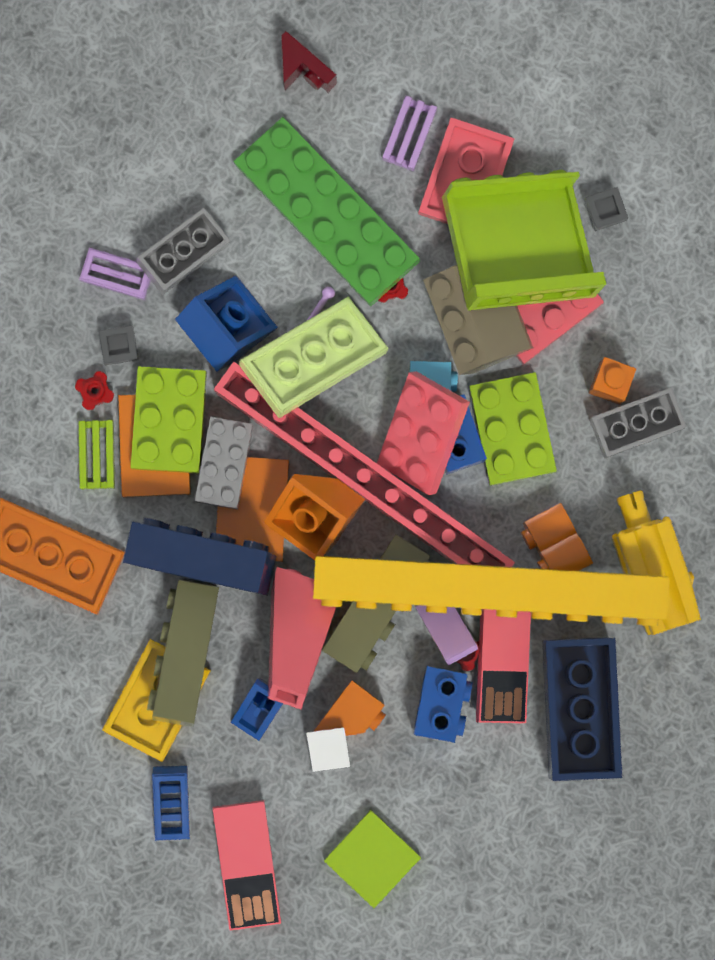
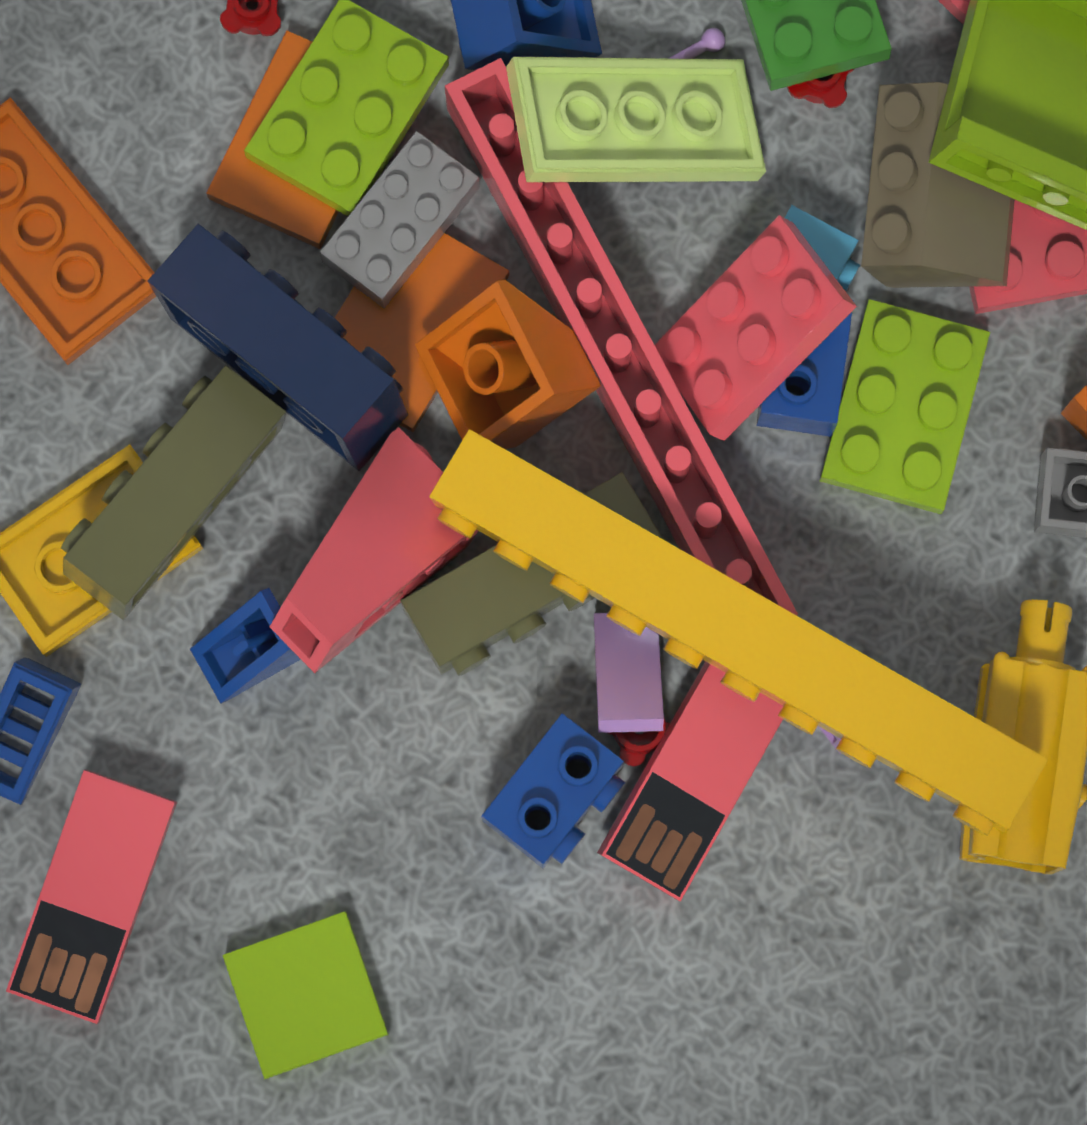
camera: 25 degrees right, 5 degrees down
(95, 425) = (224, 62): lime tile -> none
(328, 749) = (326, 771): white sticker -> none
(353, 711) = (393, 733): orange slope -> none
(556, 541) = (886, 614): orange brick -> none
(582, 709) = (788, 919): dark blue brick -> none

